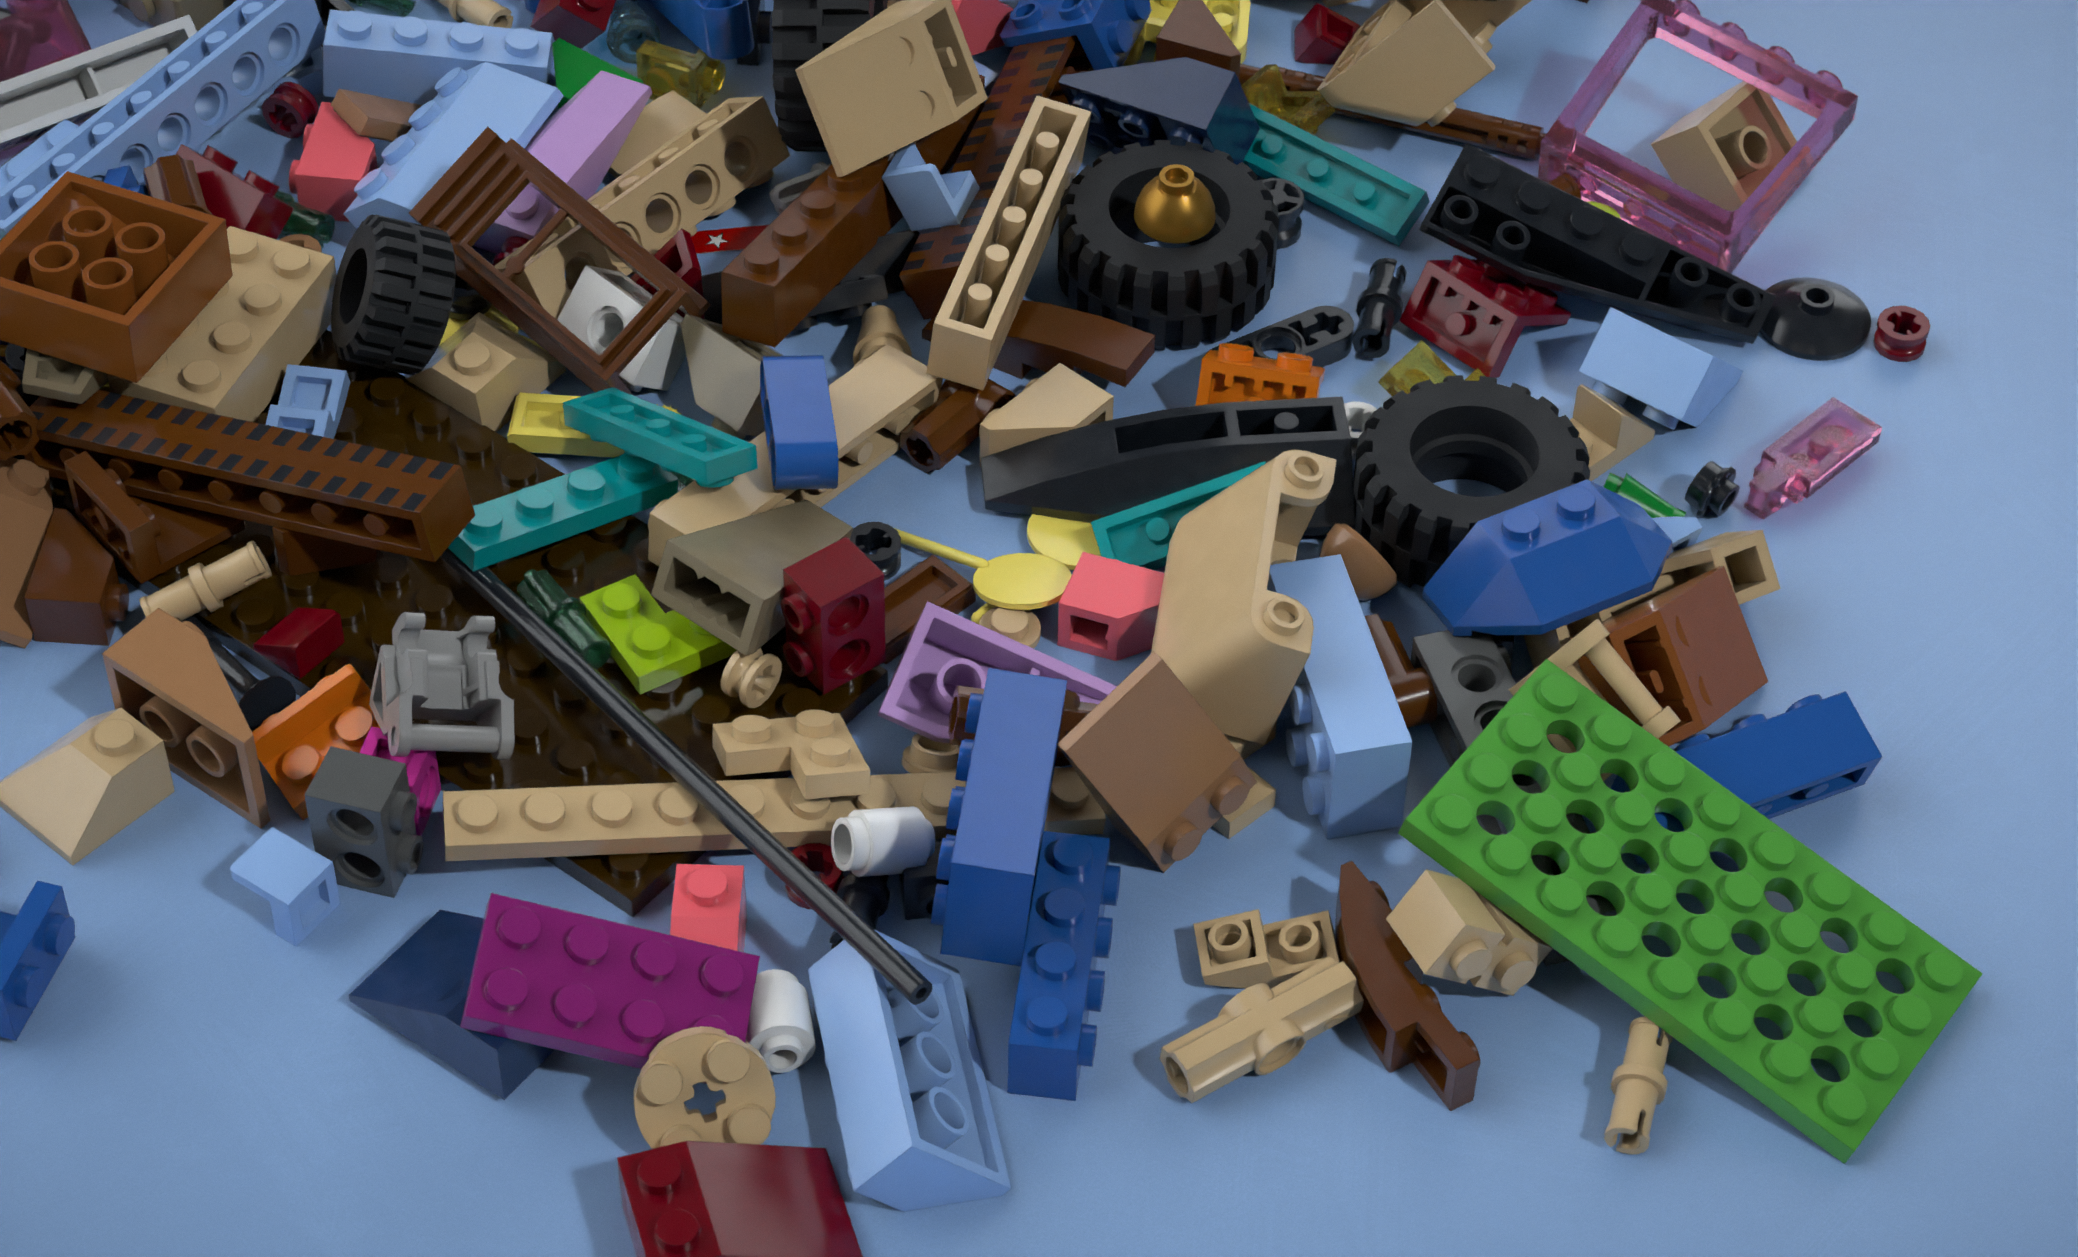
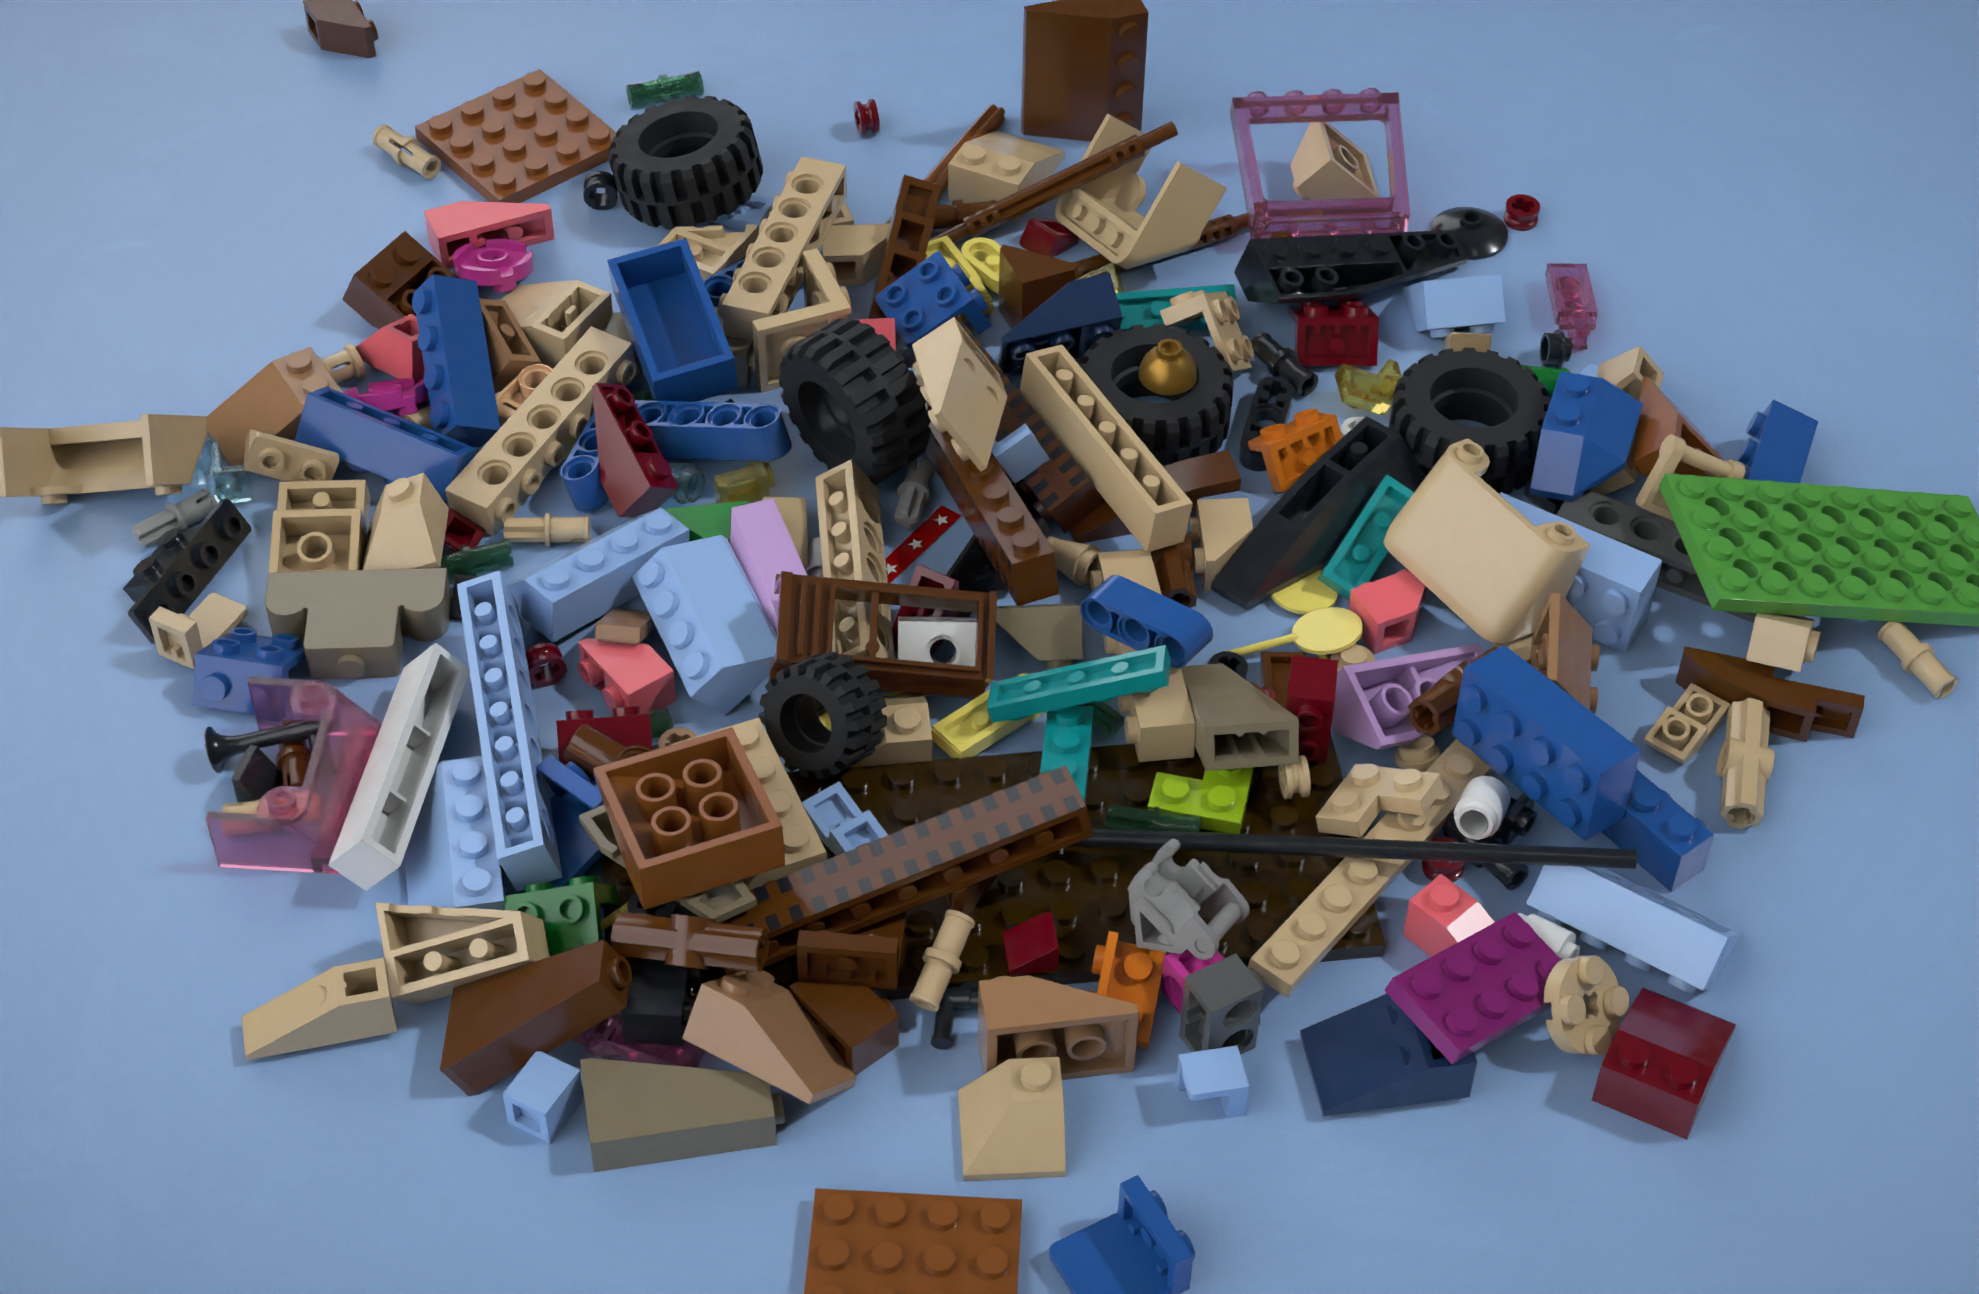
camera: 45 degrees left, 0 degrees up
(1325, 217) = (1221, 318): none -> tan bracket

